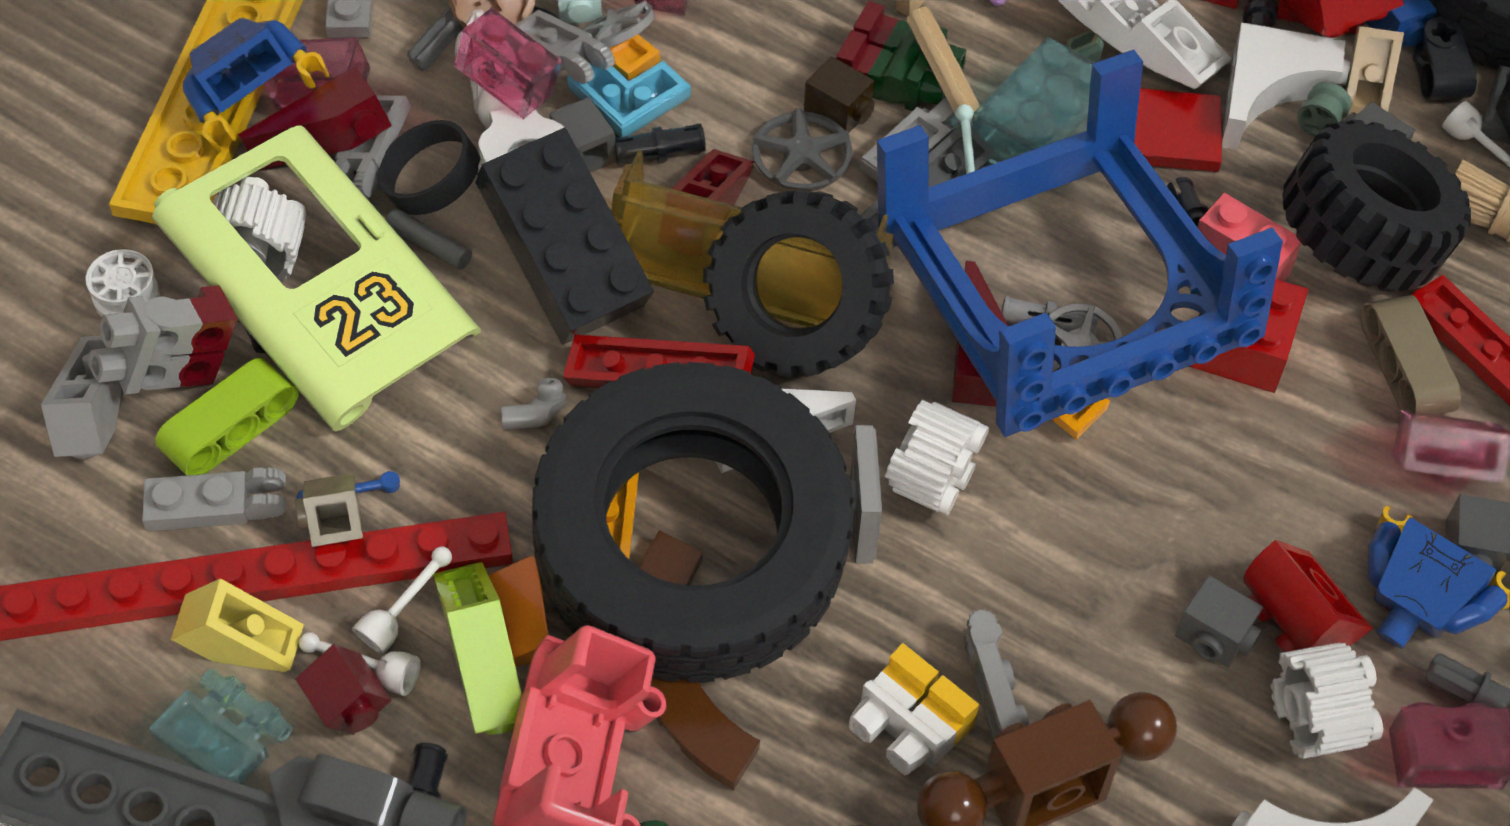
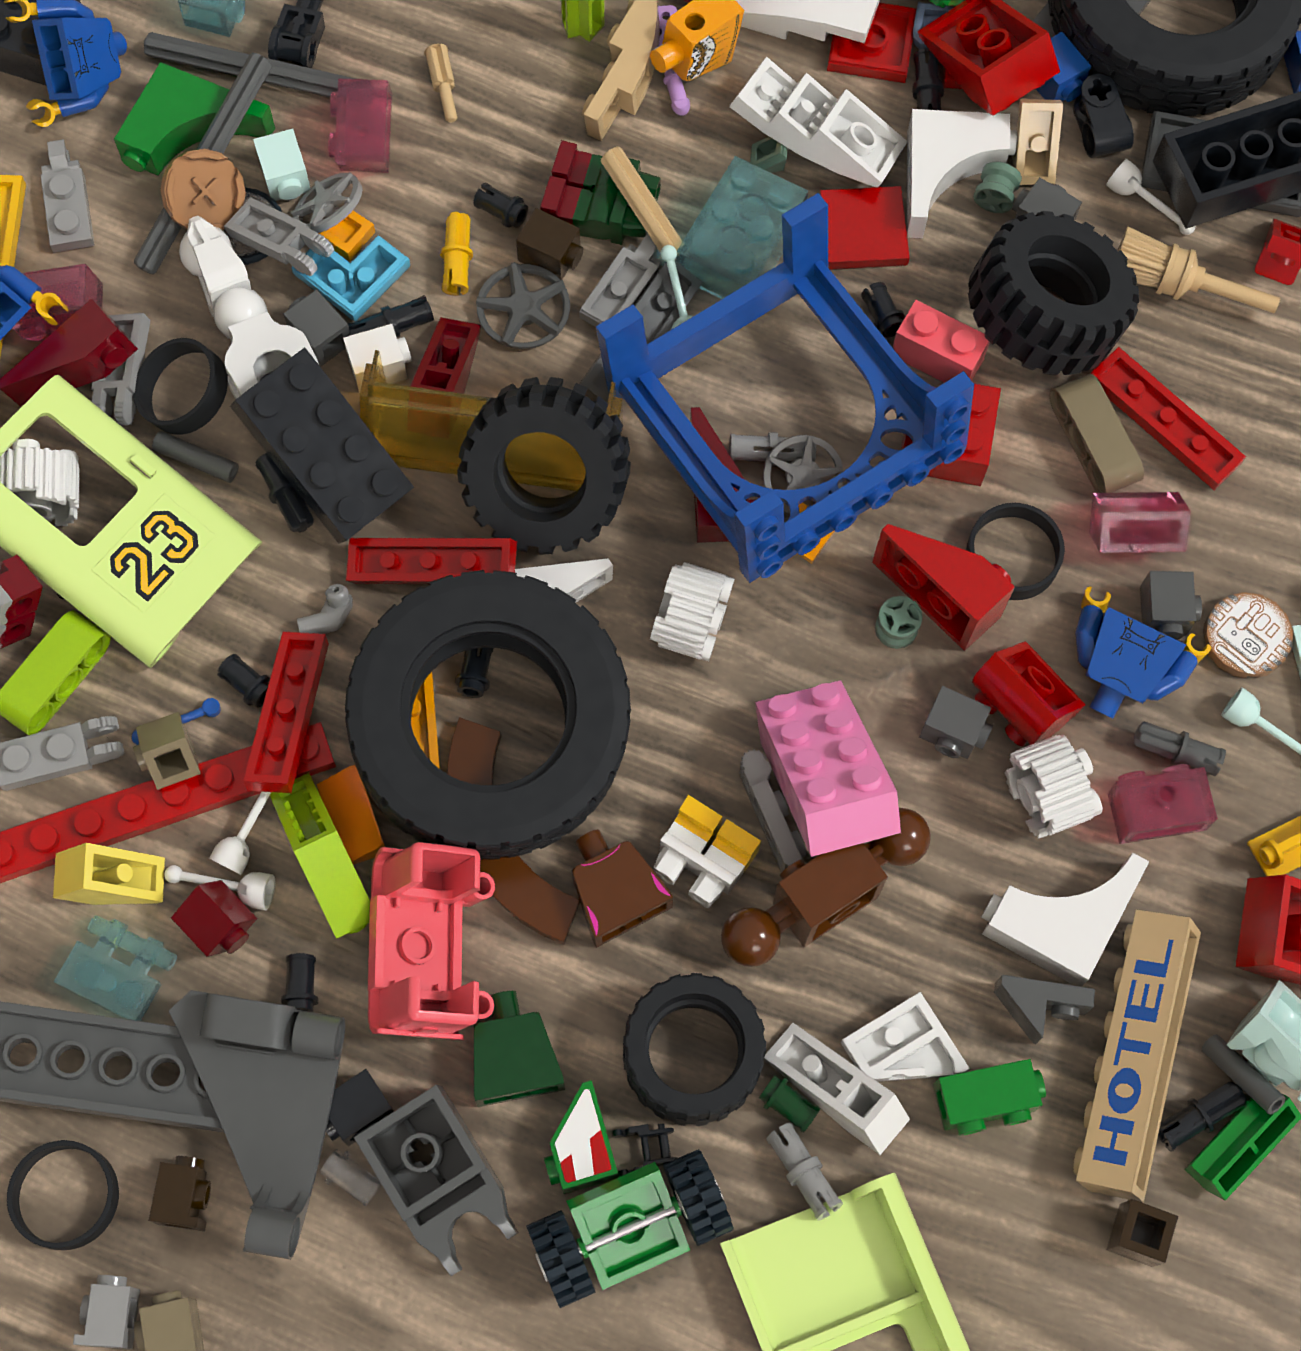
camera: 10 degrees left, 15 degrees up
(441, 467) = (244, 680): none -> black pin
(469, 492) = (286, 712): none -> red plate
(507, 63) = (236, 279): clear pink brick -> none
(514, 286) = (285, 495): none -> black axle
(656, 167) = (393, 353): none -> white brick
(681, 494) = (474, 671): none -> black pin
(740, 93) = (456, 254): none -> yellow axle
(800, 59) = (508, 209): none -> black pin
(805, 735) = (616, 888): none -> reddish brown torso
(866, 494) = (635, 658): light grey plate -> none
(1068, 633) = (827, 768): none -> bright pink brick
(1165, 497) = (901, 612): none -> sand green wheel
(1224, 470) = (947, 582): none -> red slope
(1319, 422) = (1040, 519): none -> black tyre

